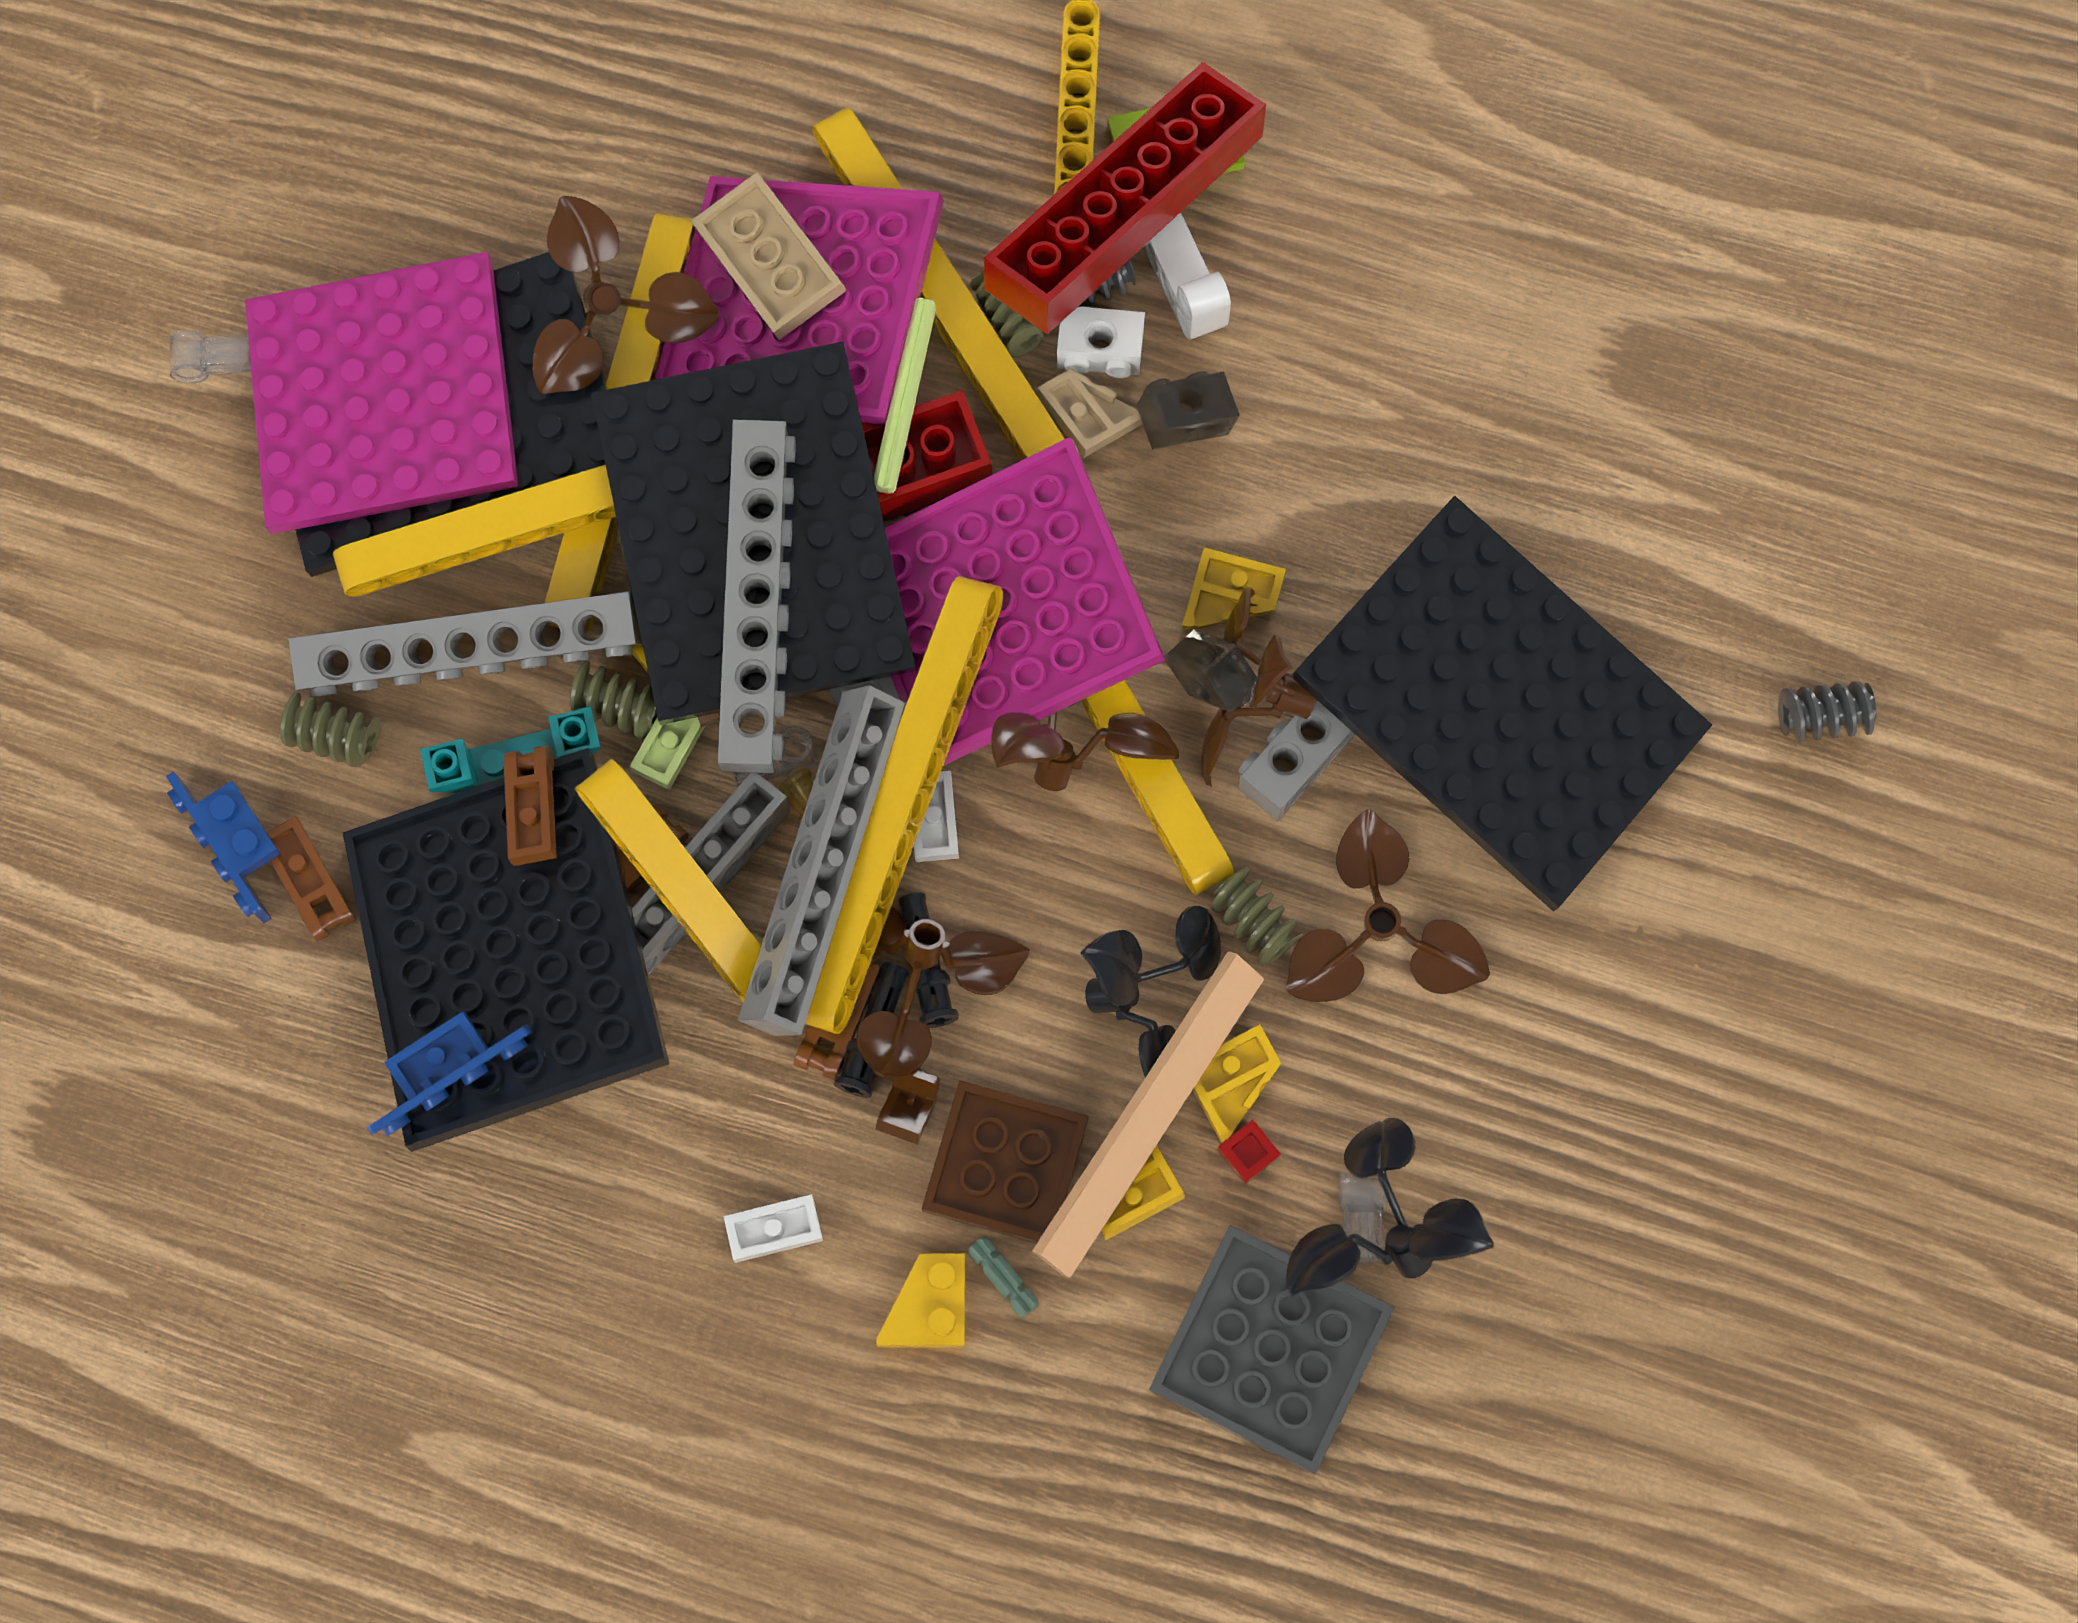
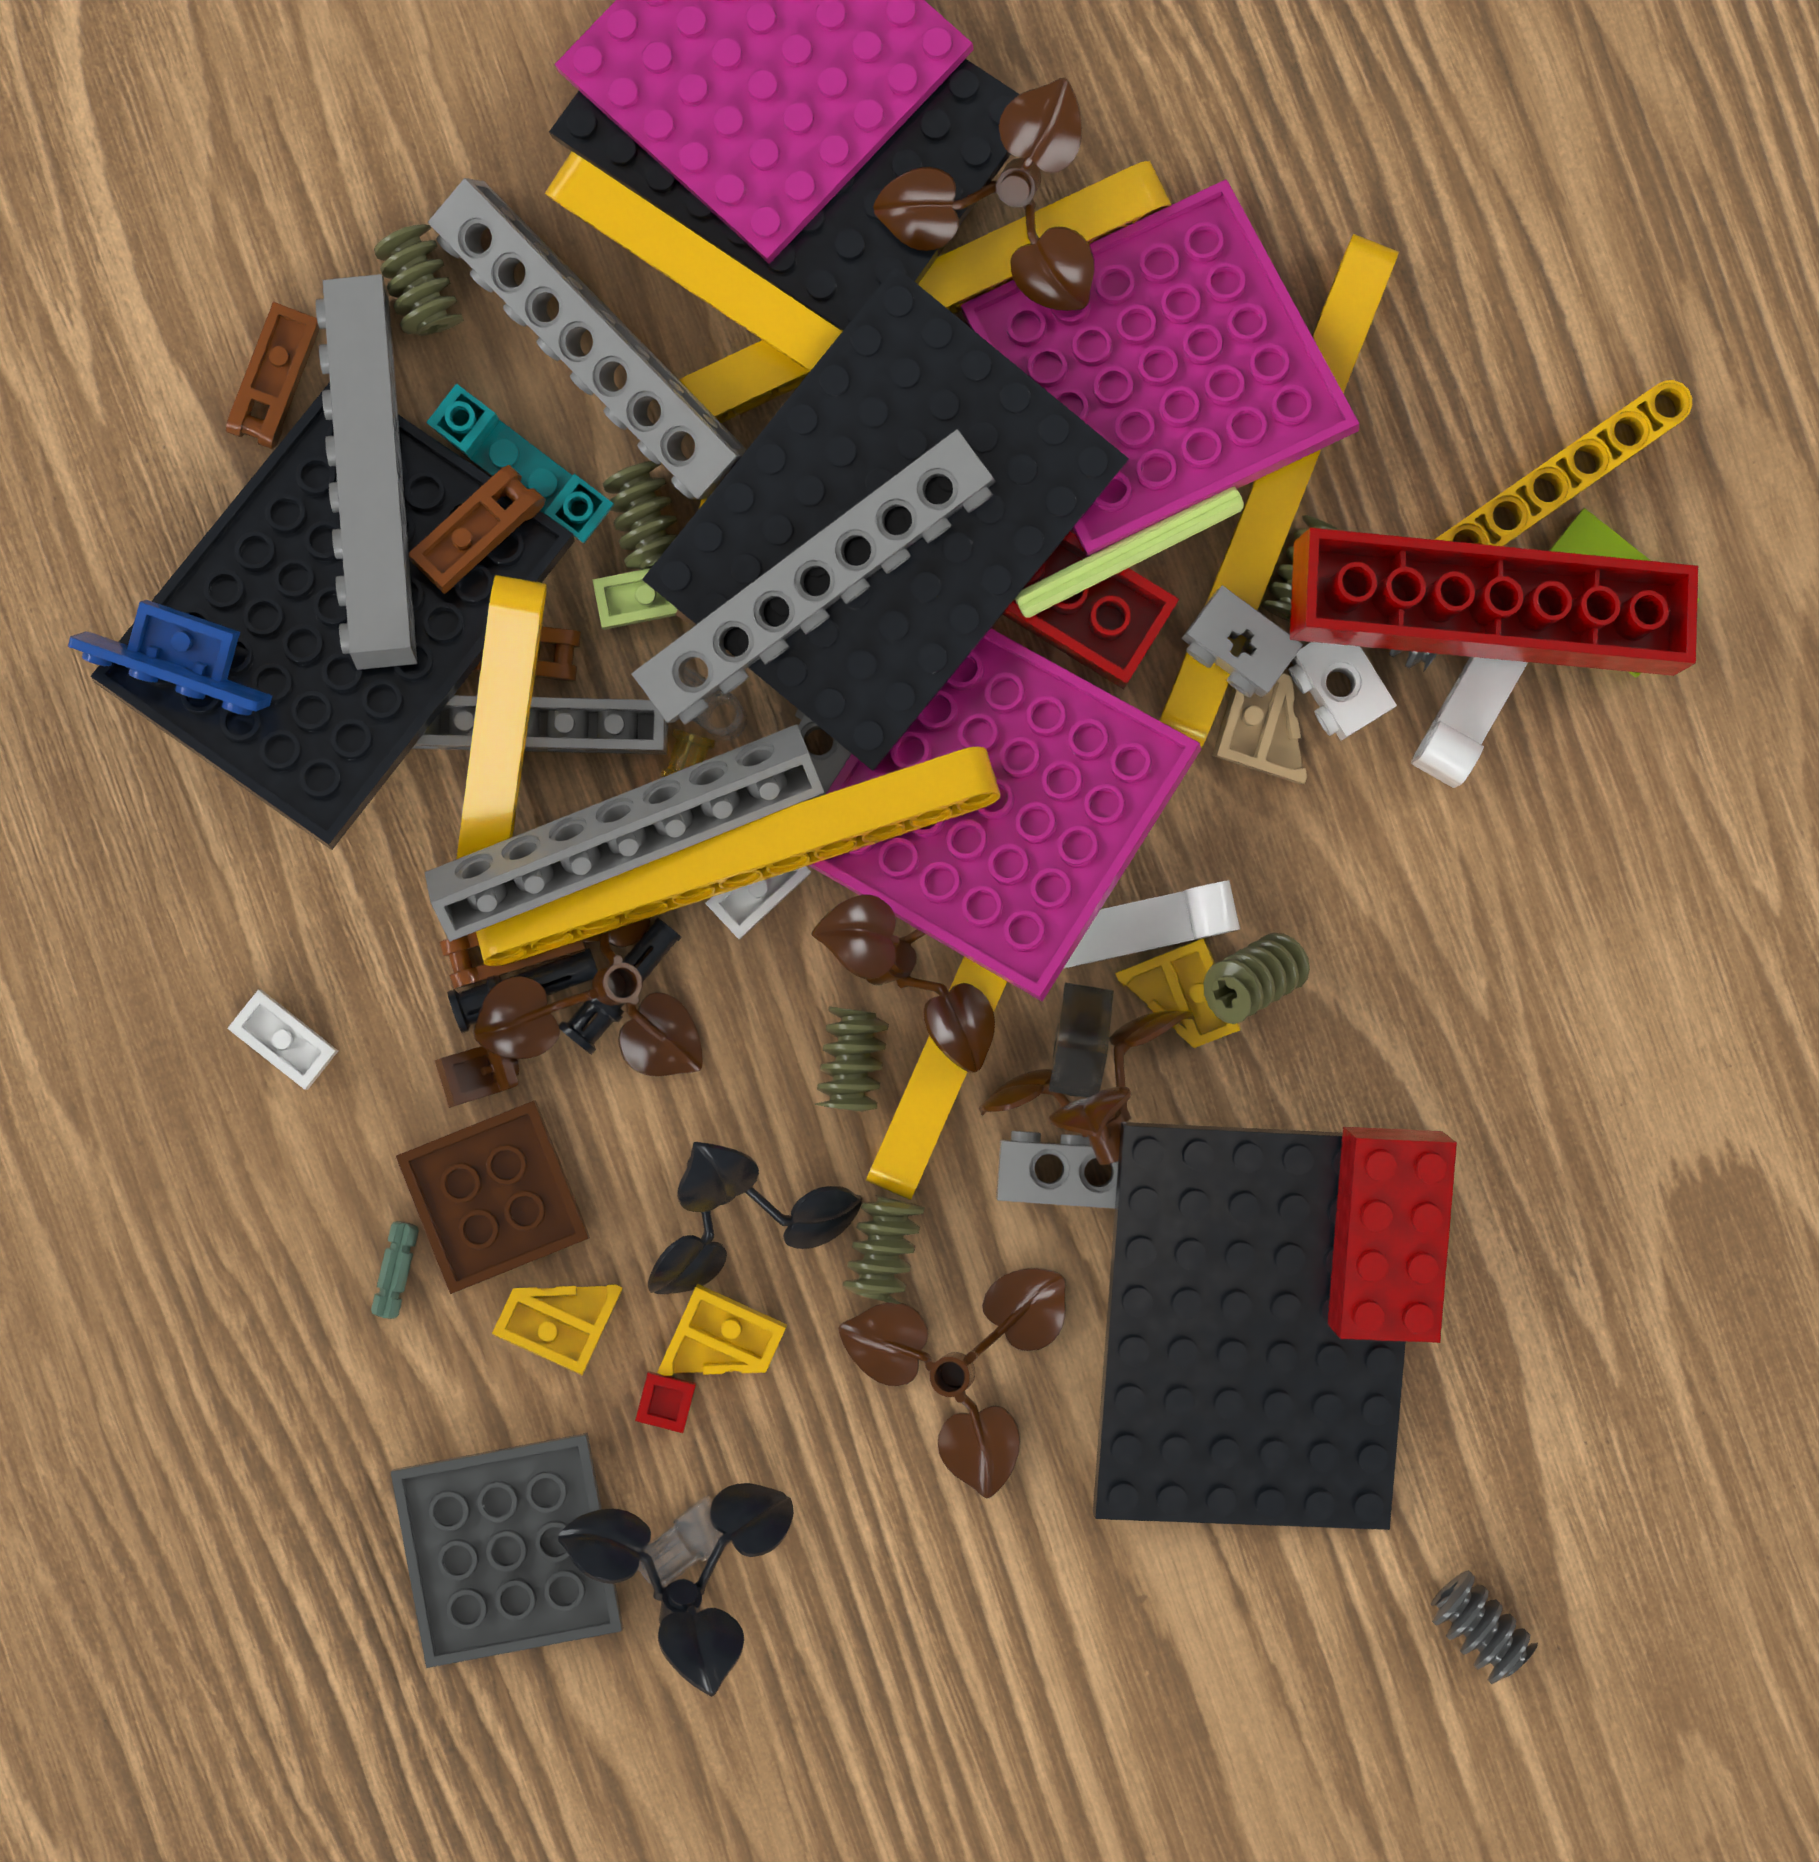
camera: 55 degrees right, 15 degrees up
(234, 835) = (258, 276): blue bracket -> none
(431, 850) = (368, 473): none -> light grey brick
(768, 256) = (1175, 308): tan plate -> none
(928, 1306) = (322, 1225): yellow wing -> none
(1002, 371) = (1268, 644): none -> light grey brick
(1102, 839) = (852, 1060): none -> olive piece
(1148, 1115) = (624, 1294): light nougat tile -> none
(1171, 424) = (1304, 809): clear smoke brick -> none
(1175, 559) = (1158, 923): none -> white beam
(1257, 530) = (1255, 977): none -> olive piece
(1506, 553) = (1391, 1234): none -> red brick

